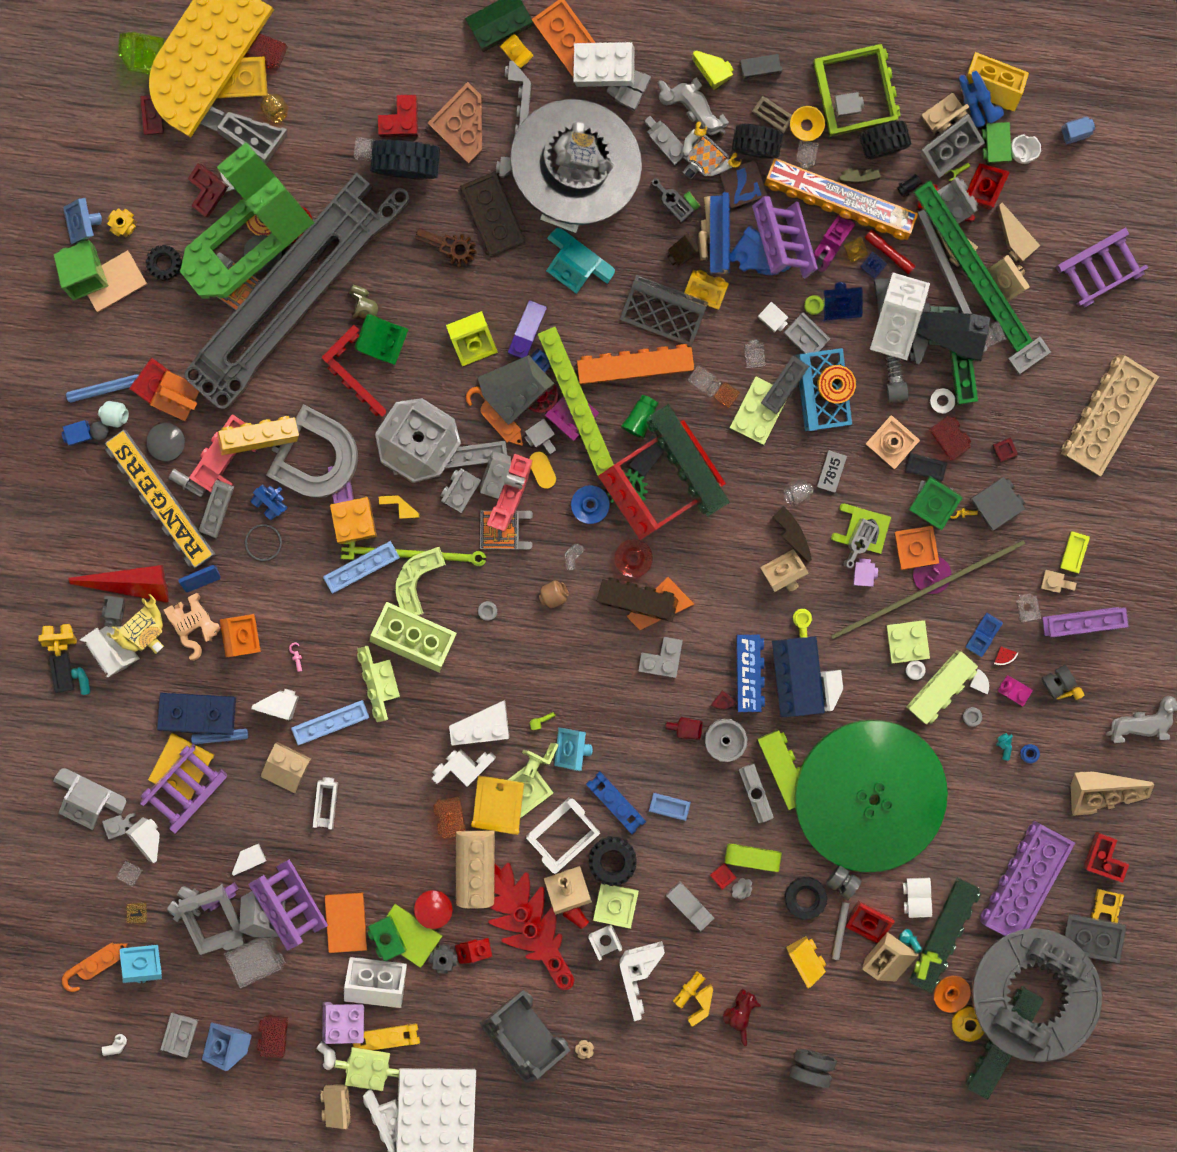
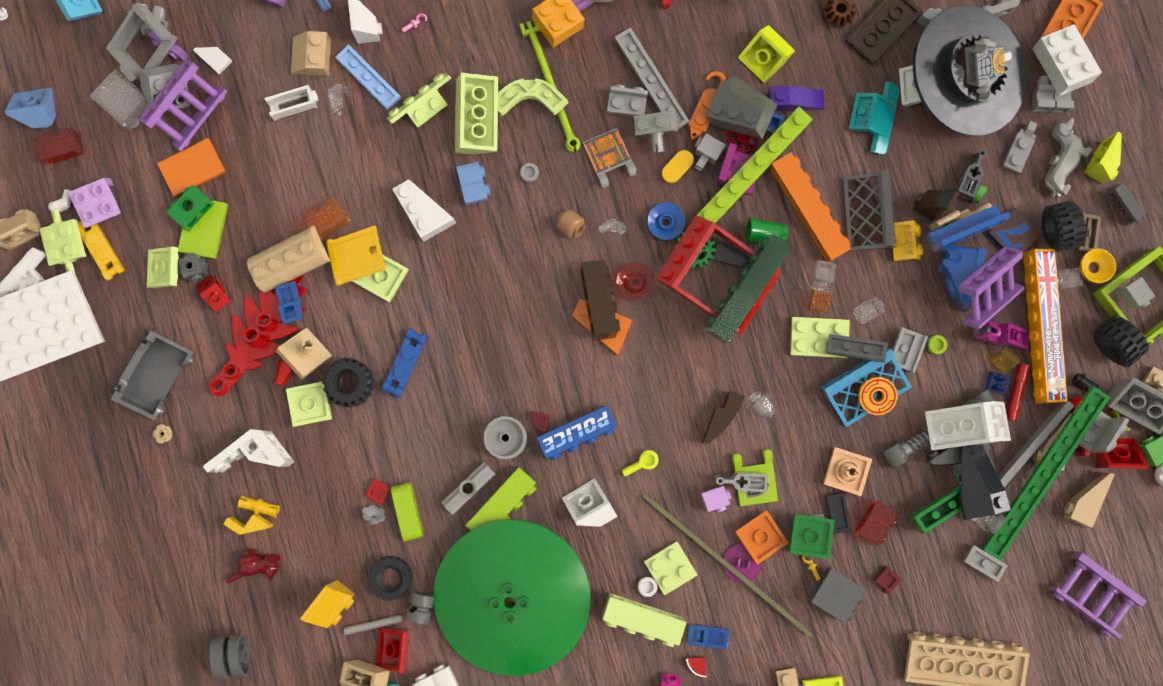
camera: 60 degrees right, 5 degrees down
(179, 1034) = (27, 63): light grey plate -> none
(343, 762) = (336, 102): none -> clear bracket
(361, 567) = (519, 44): light blue tile -> none
(375, 982) = (146, 215): white slope -> none
(405, 509) = (588, 59): yellow slope -> none
(417, 459) = (640, 51): light grey piece -> none
(431, 986) = (162, 267): none -> yellowish green plate
(433, 909) = (235, 239): red dish -> none
(463, 766) = (376, 208): white bracket -> none
(476, 668) = (472, 183): none -> medium blue brick
(510, 496) = (642, 147): coral slope -> none
(514, 883) = (290, 302): none -> blue slope
(535, 760) = (410, 271): yellowish green bracket -> none
(536, 723) = (445, 259): lime hand -> none
(547, 859) = (325, 322): white piece -> none
(571, 749) = (436, 300): medium azure tile -> none
(601, 950) = (263, 402): white piece -> none
(663, 664) = (554, 354): light grey plate -> none
(669, 806) = (422, 414): medium blue tile -> none
(686, 728) = (500, 397): dark red piece -> none
(690, 906) = (337, 472): light grey piece -> none
(705, 155) = (1026, 186): torso -> none
(773, 317) = (910, 311): white brick -> none
(784, 571) = (685, 424): tan tile -> none
(798, 676) = (593, 479): dark blue slope -> none
(831, 471) = (794, 427): light grey tile -> none
(842, 302) = (953, 369): clear blue tile -> none
(853, 177) = (1069, 329): olive slope -> none
(946, 408) = (914, 497): white piece -> none
(972, 716) = (627, 659): light grey tile -> none
(980, 682) = (663, 653): white tile -> none
(1008, 277) = (1050, 512): tan tile -> none
(1033, 613) = (751, 675): clear brick -> none

